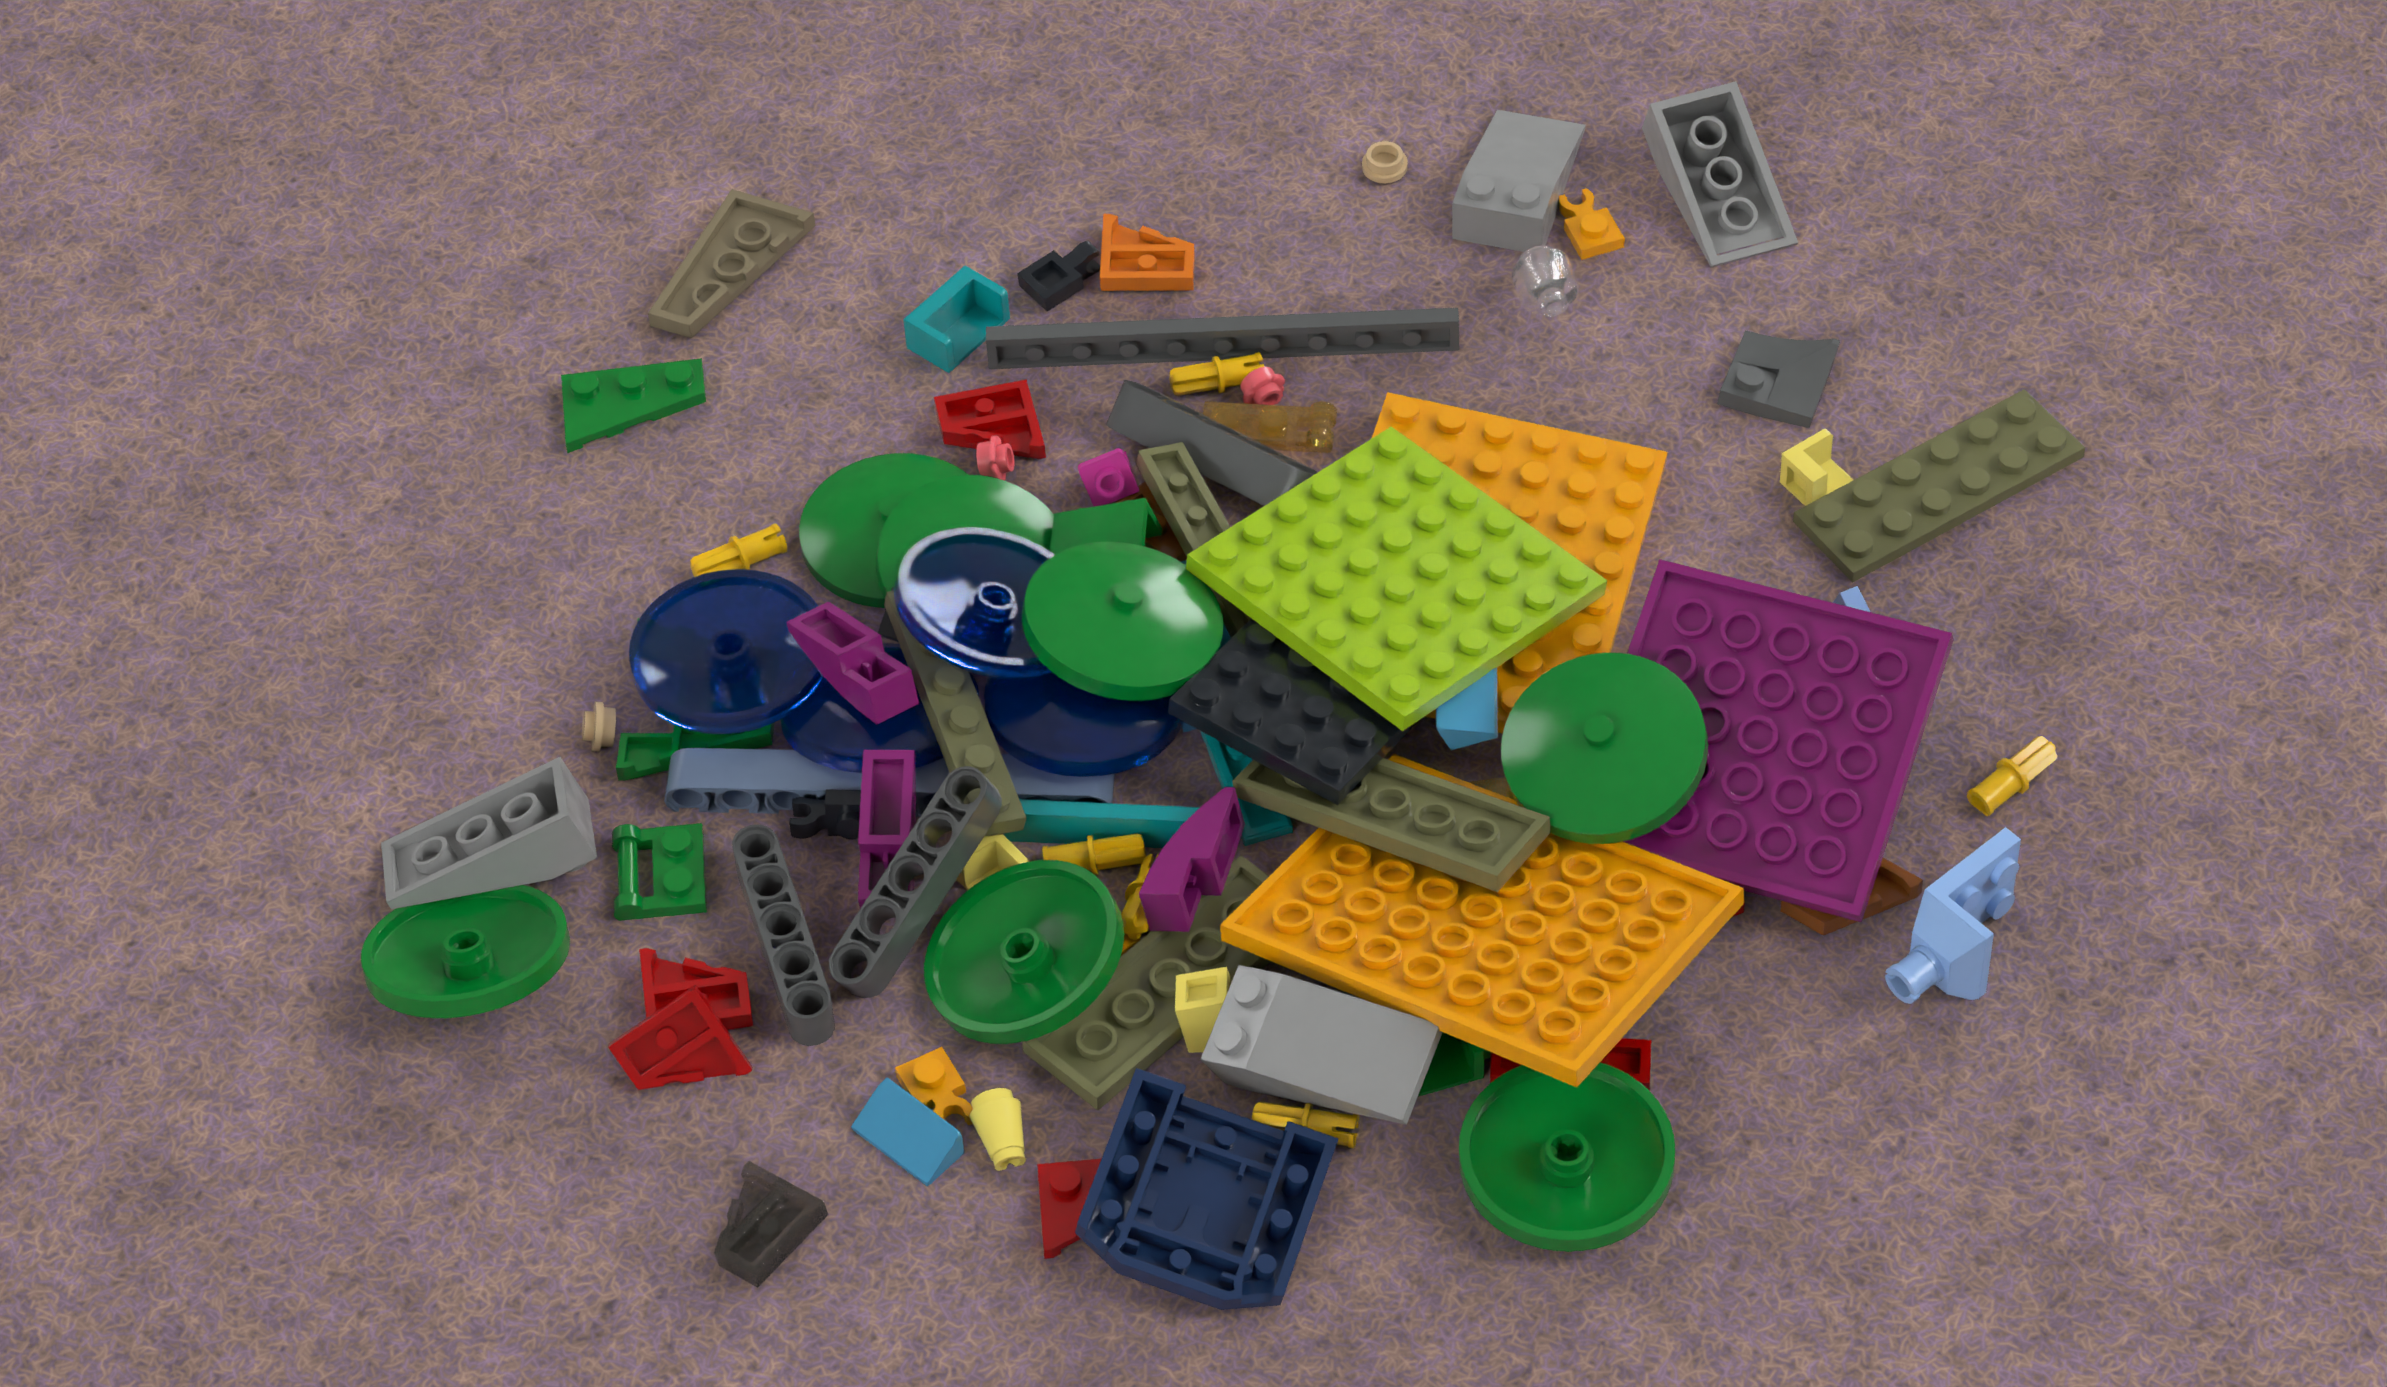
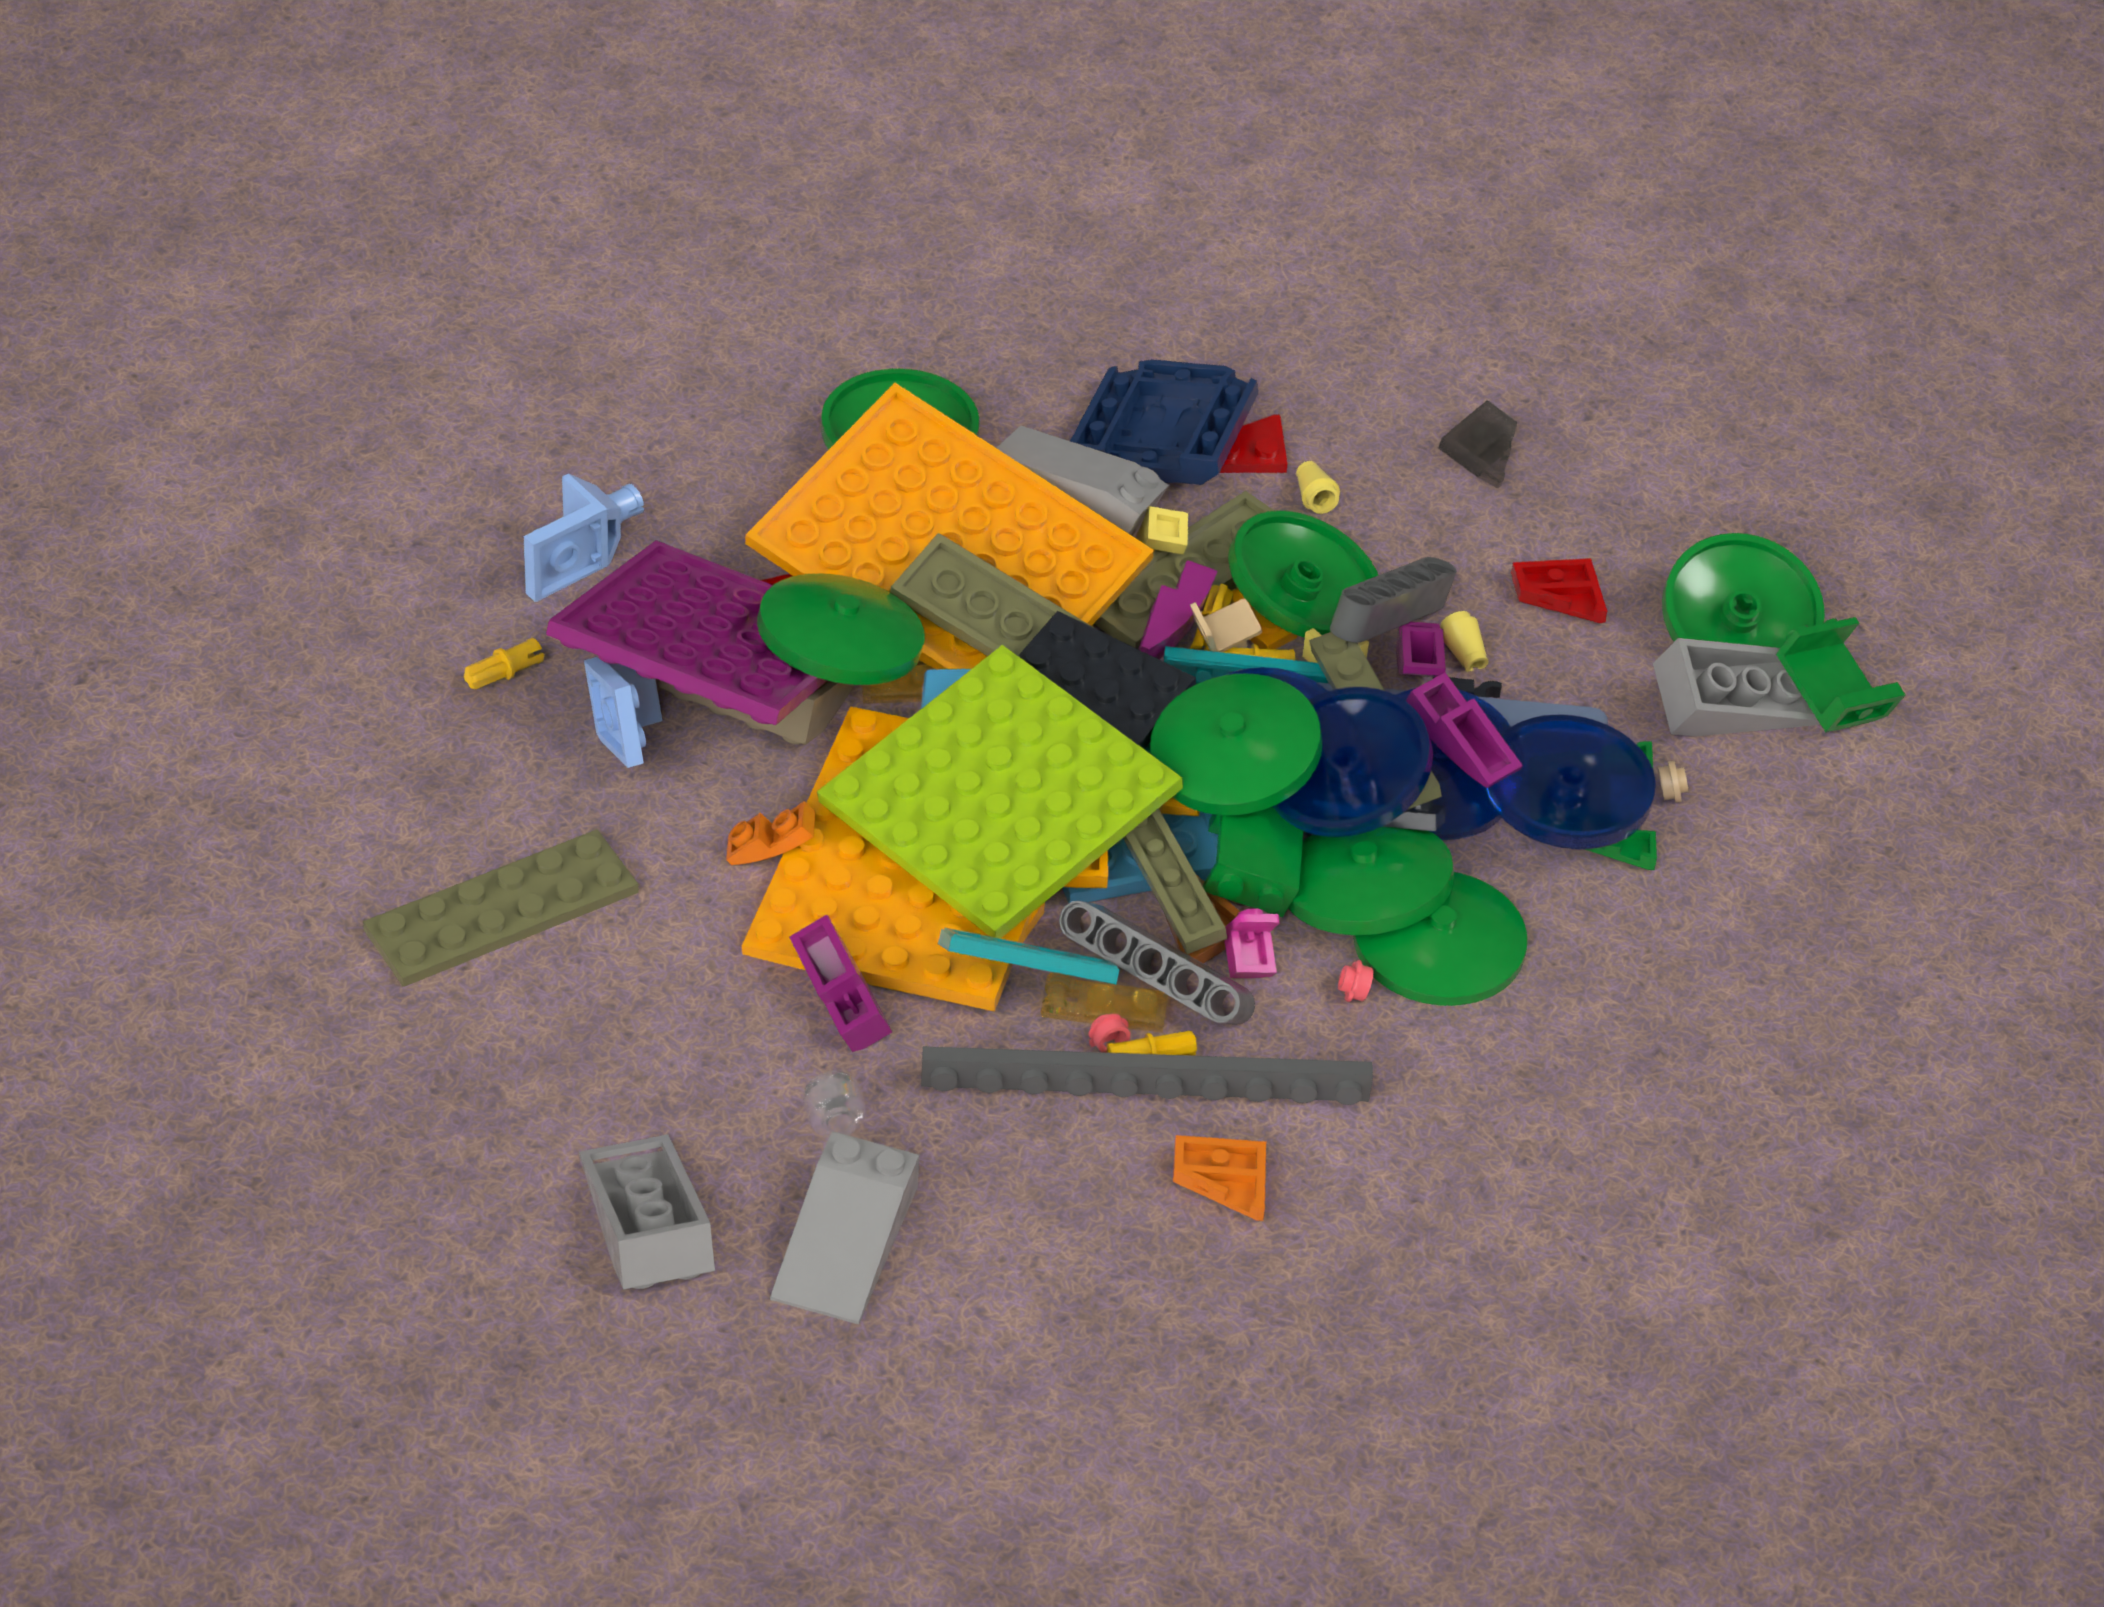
camera: 175 degrees right, 5 degrees down
(365, 851) = (1831, 677): none -> green panel
(619, 398) = (1707, 1076): green wing -> none
(677, 871) = (1589, 682): green plate -> none
(679, 1045) = (1561, 546): red wing -> none
(726, 259) = (1634, 1203): dark tan wing -> none
(741, 552) = (1577, 918): yellow axle -> none
(783, 935) = (1499, 617): dark grey beam -> none
(826, 904) = (1464, 640): none -> light yellow cone
(909, 1132) = (1382, 495): dark azure slope -> none
(935, 1084) = (1366, 525): light orange plate -> none
(956, 318) = (1405, 1117): teal panel -> none
(988, 411) = (1361, 1022): red wing -> none
(1058, 278) = (1307, 1154): black plate -> none
(1126, 848) = (1227, 626): none -> tan bracket
(1354, 407) = (1028, 955): none -> teal tile
(1384, 162) = (980, 1261): tan plate -> none
(1552, 392) = (840, 984): none -> magenta slope
(1590, 230) = (780, 1176): light orange plate -> none
(1634, 561) = (761, 839): none -> orange slope
(1778, 377) = (627, 1013): dark grey plate -> none
(1810, 470) = (617, 918): light yellow panel -> none

